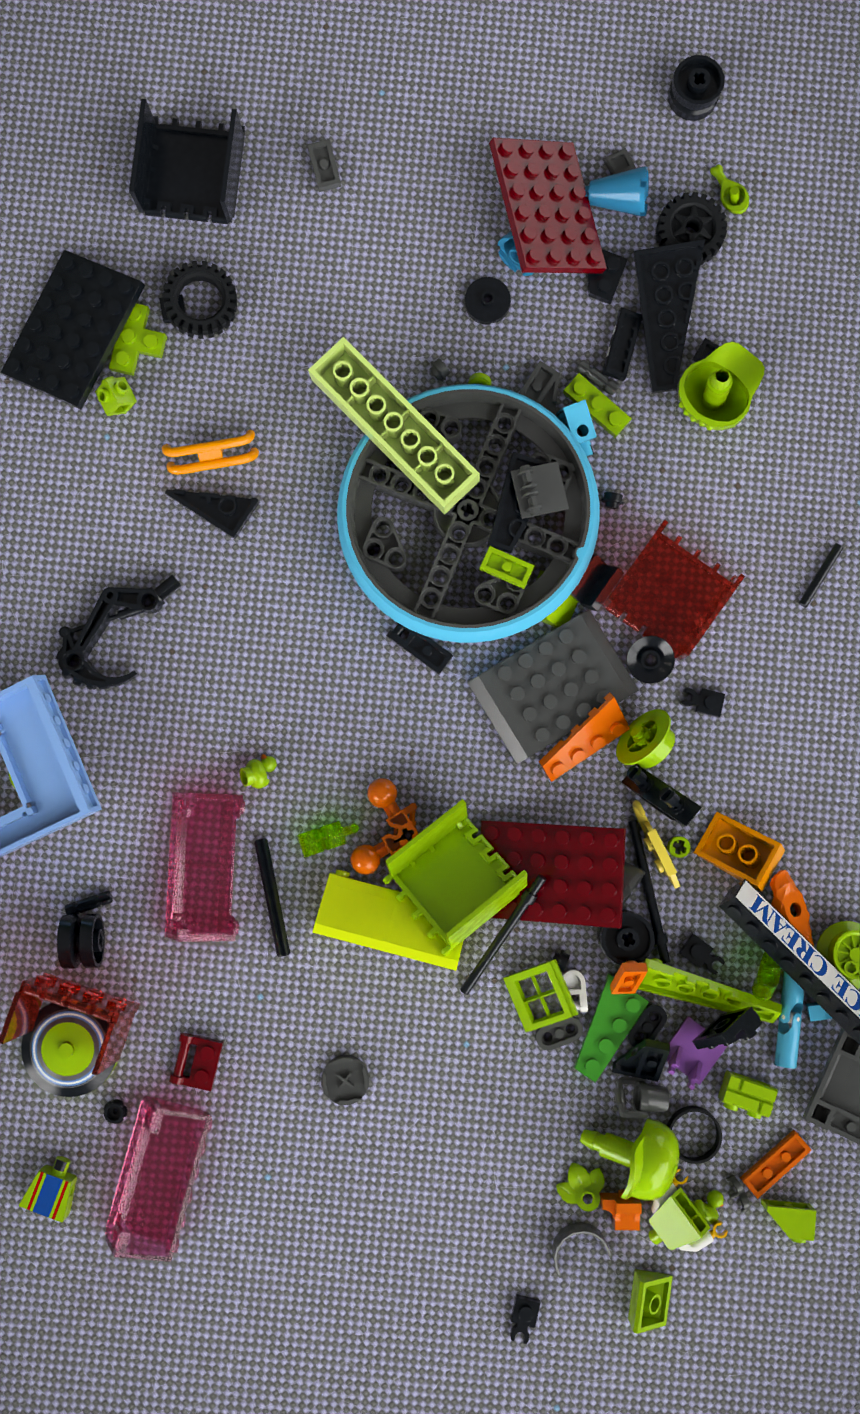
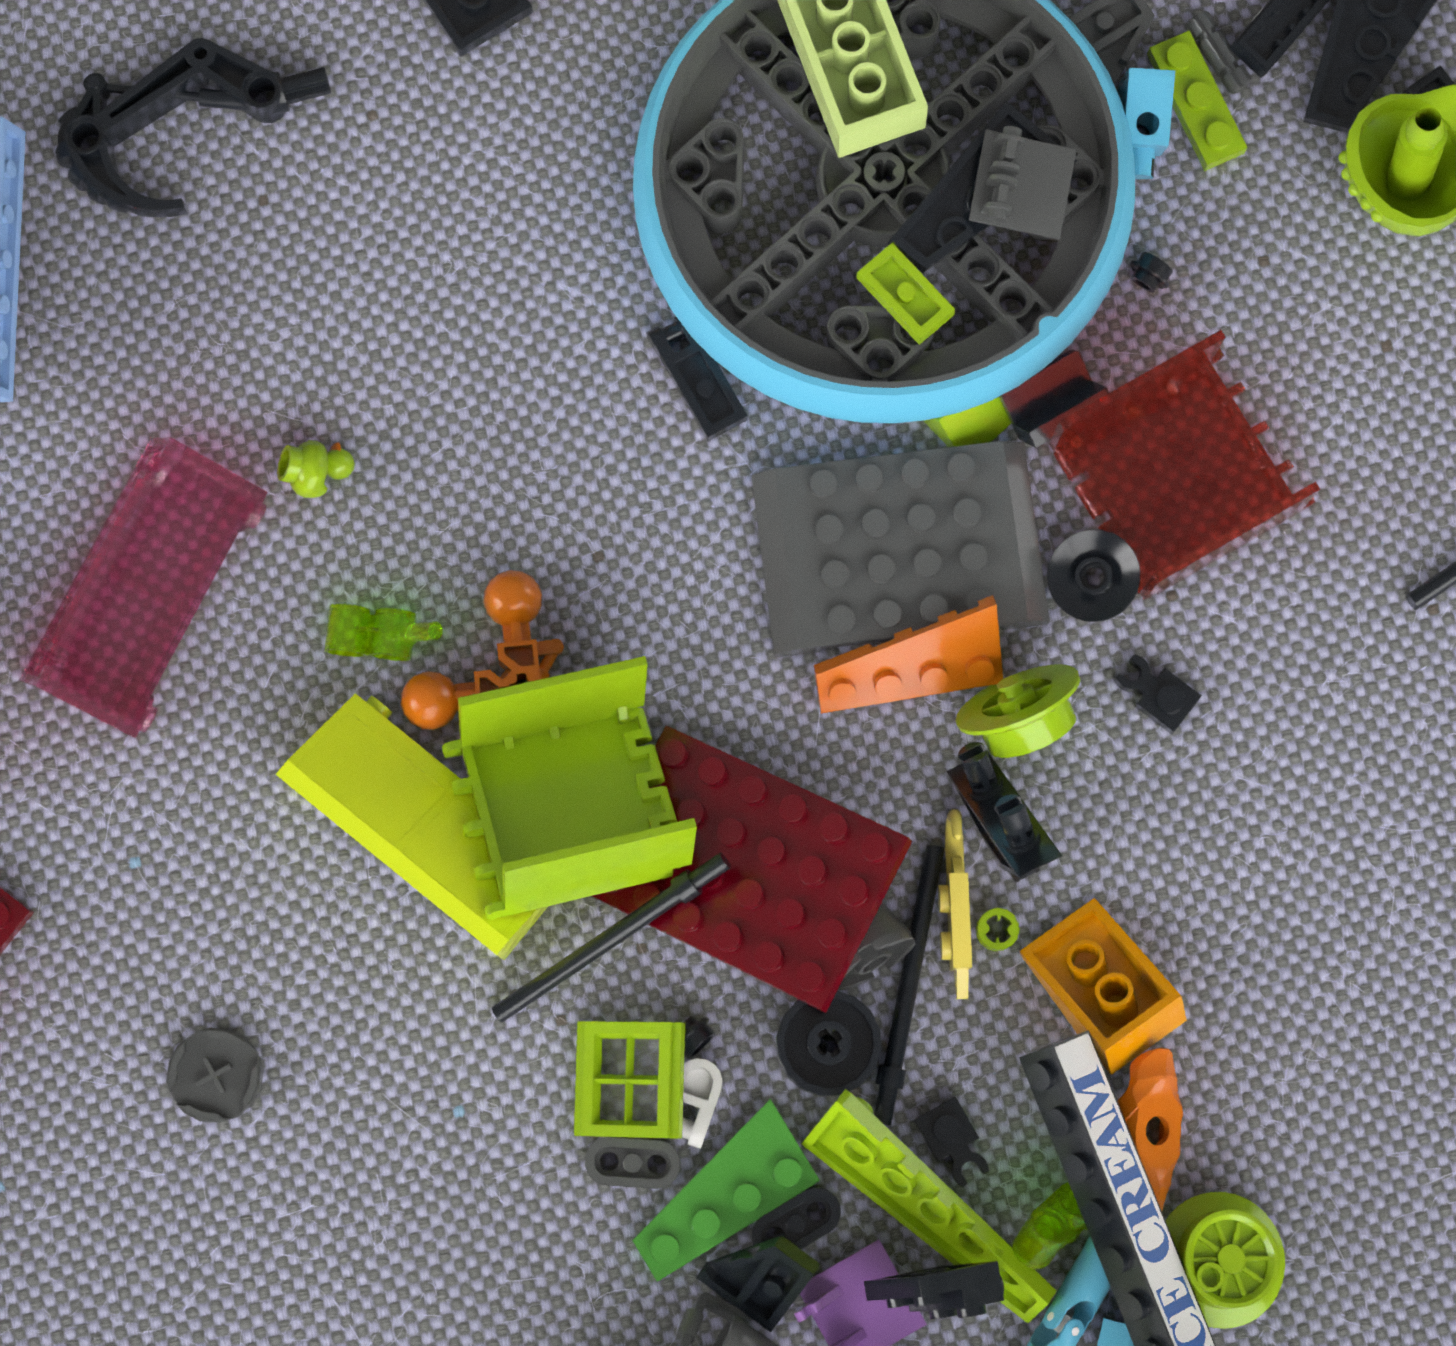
camera: 25 degrees right, 5 degrees down
(272, 897) = (236, 696): black axle -> none
(628, 978) = (799, 1112): orange plate -> none

